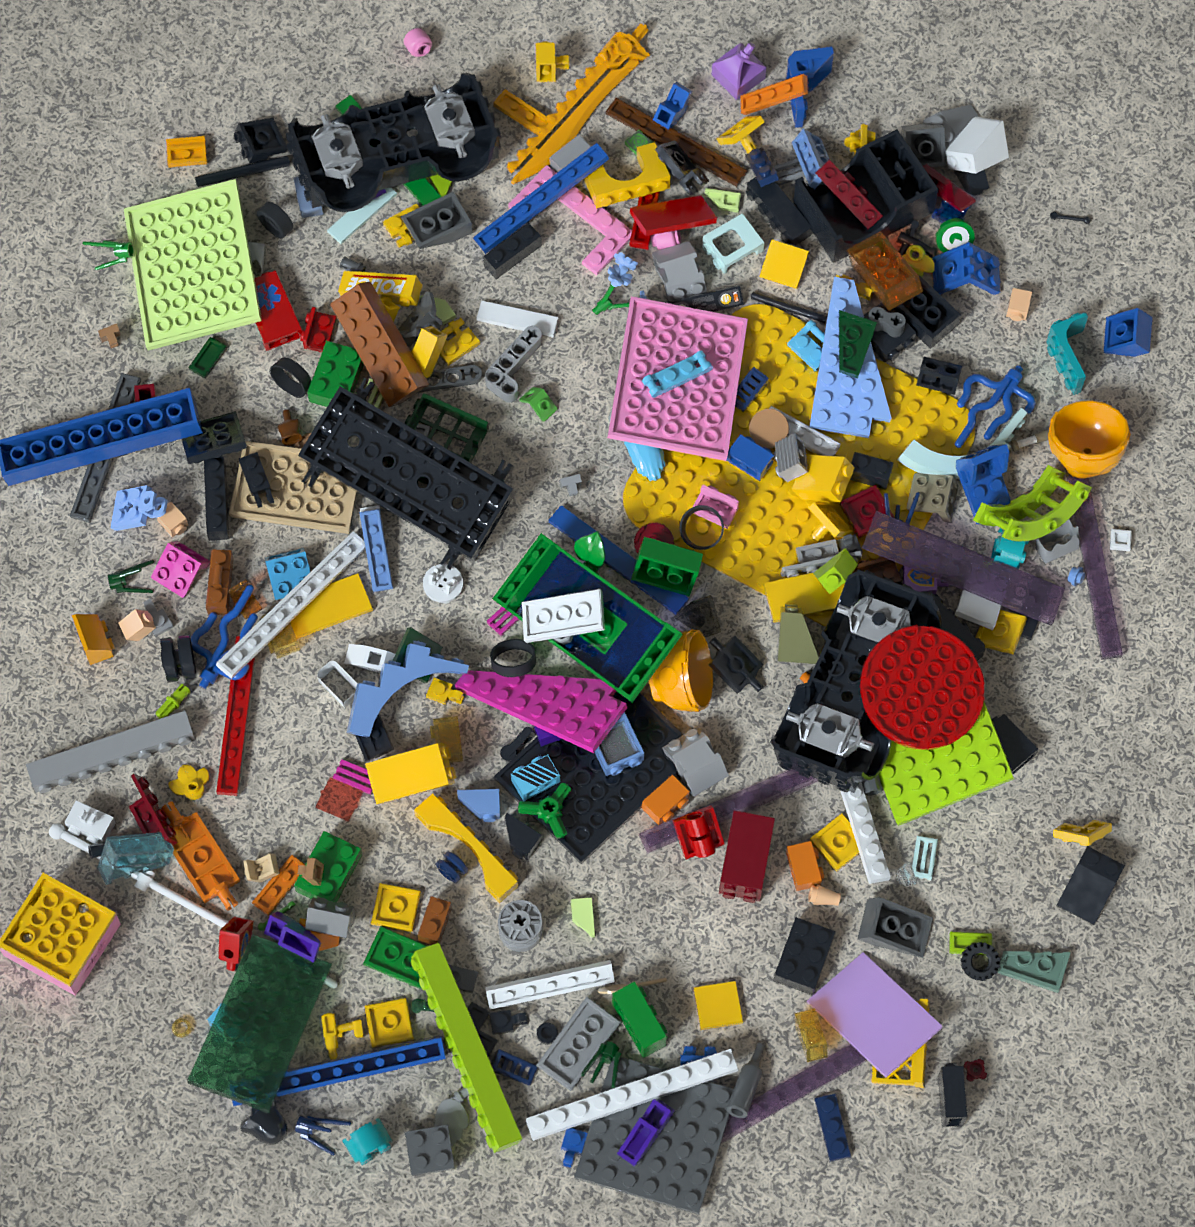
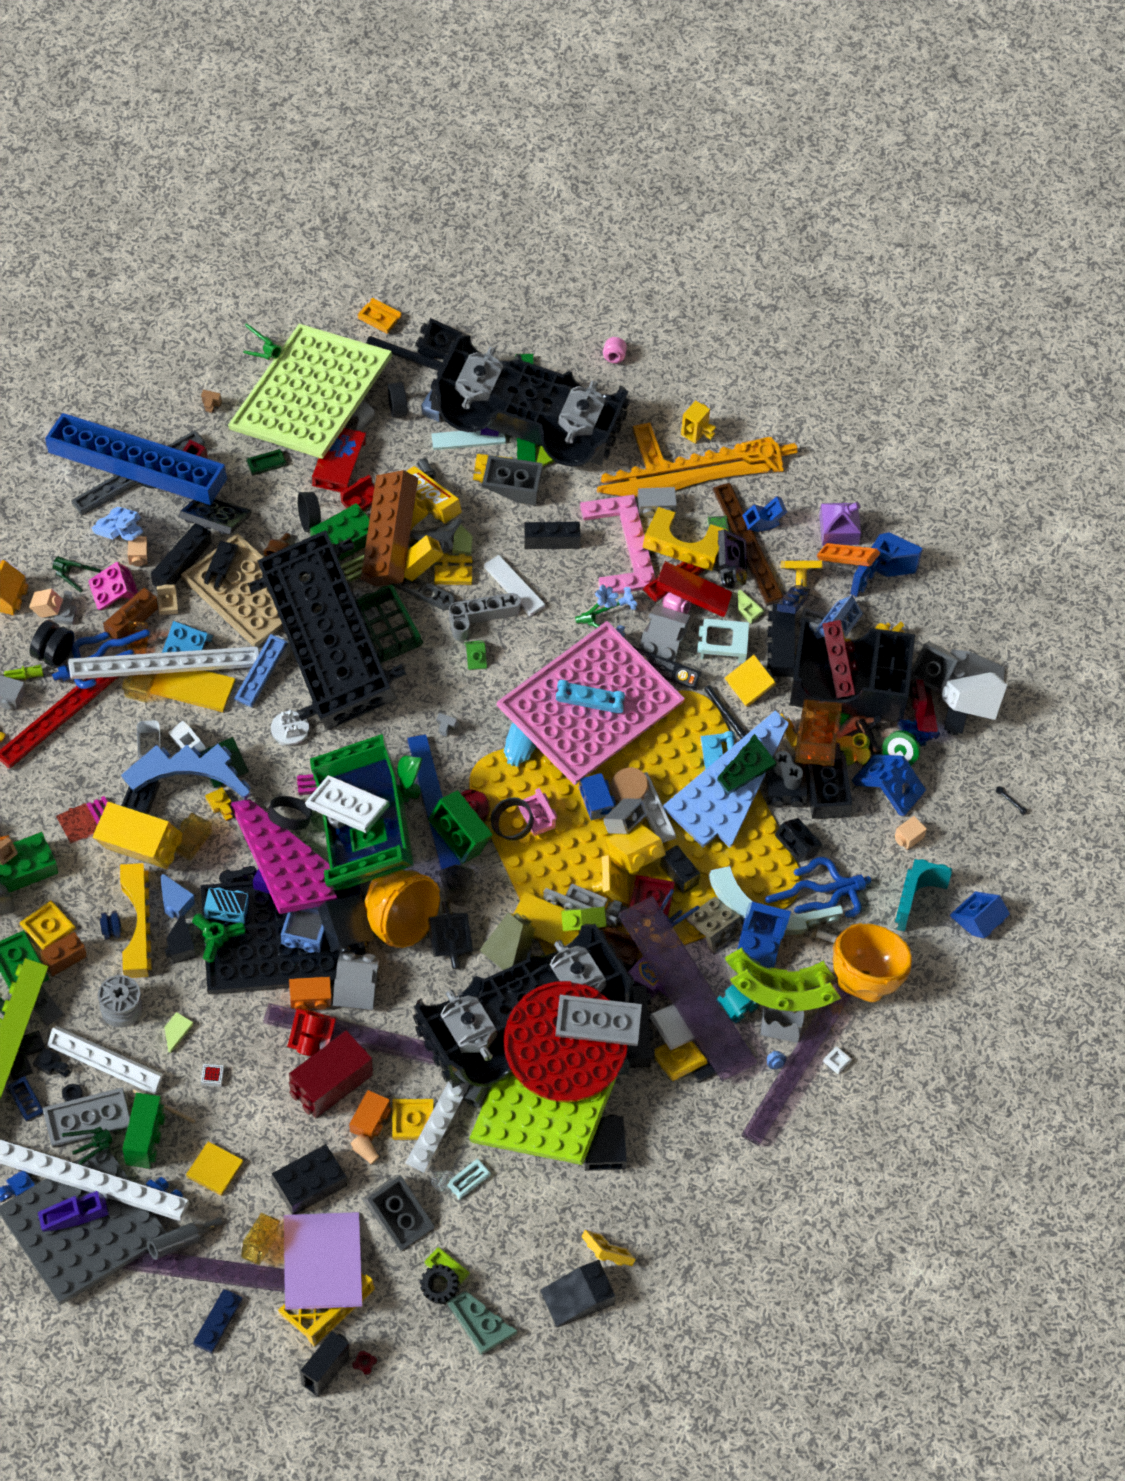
camera: 35 degrees right, 10 degrees down
(240, 546) = (167, 599): none -> tan bracket
(541, 198) = (607, 511): blue plate -> none
(646, 929) = (212, 1075): none -> tile
(651, 720) = (346, 924): none -> black brick
(749, 379) = (642, 755): dark blue slope -> none
(938, 650) = (598, 1020): none -> light grey plate

